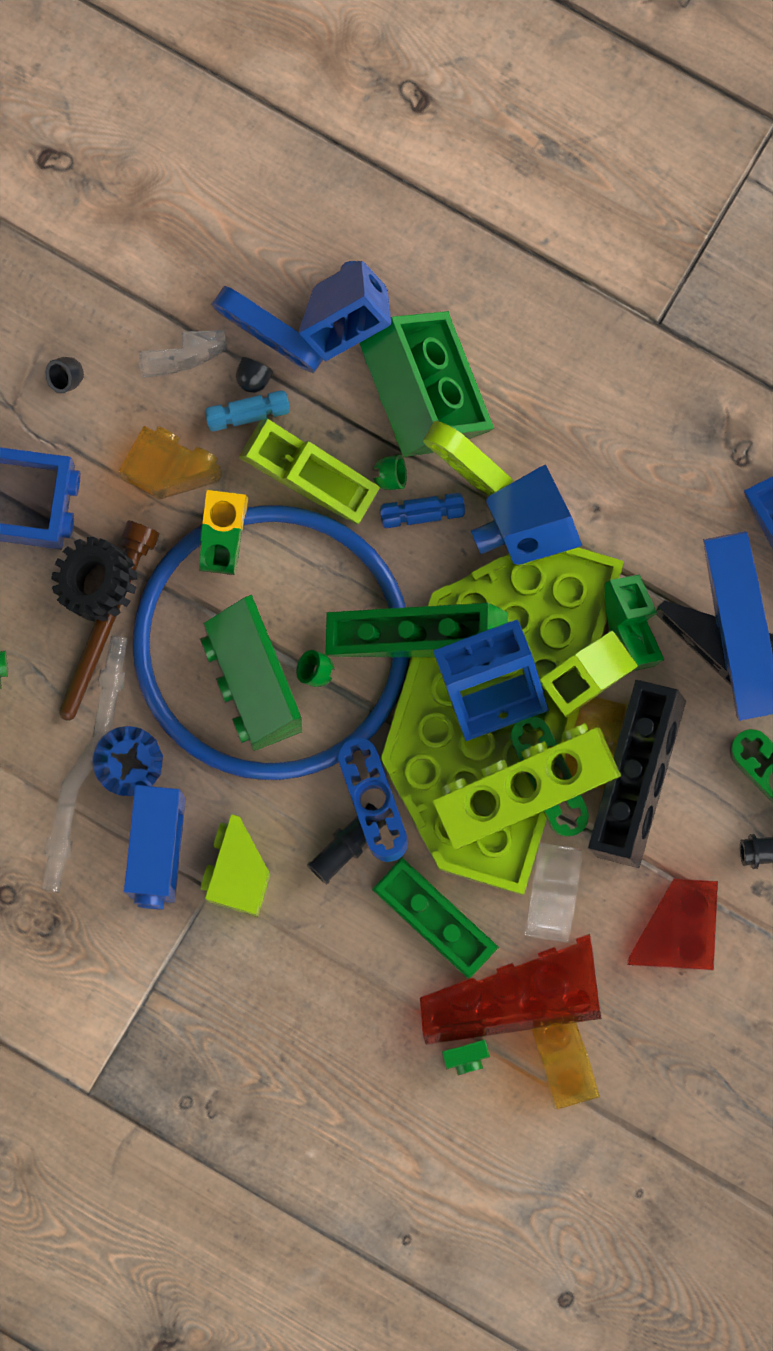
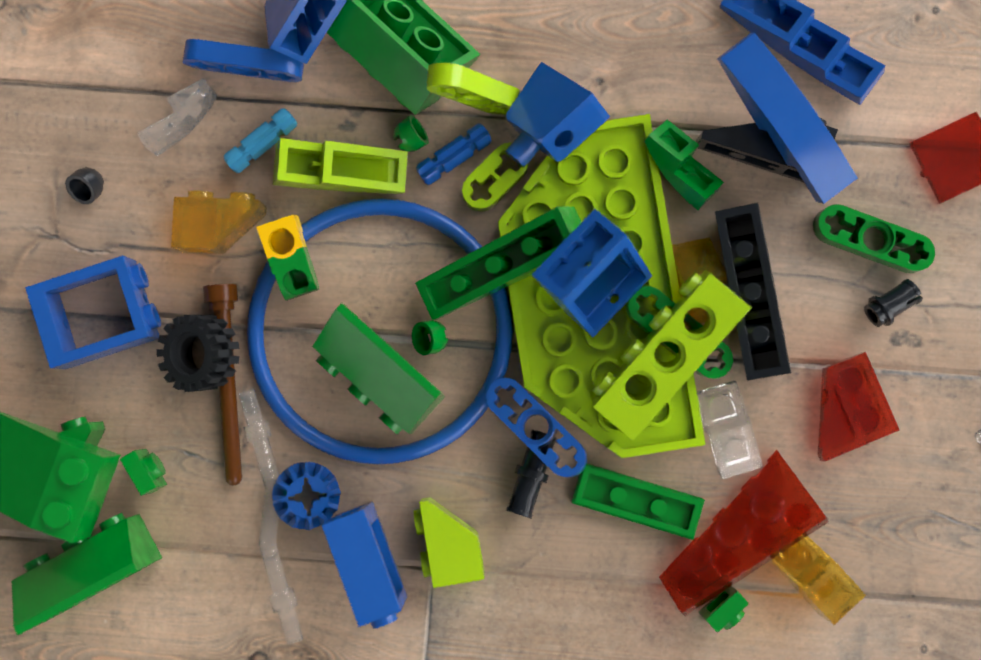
camera: 25 degrees left, 5 degrees up
(252, 375) = (249, 107): black hinge -> none
(446, 541) = (488, 170): none -> lime beam
(588, 673) = (672, 227): lime slope -> none

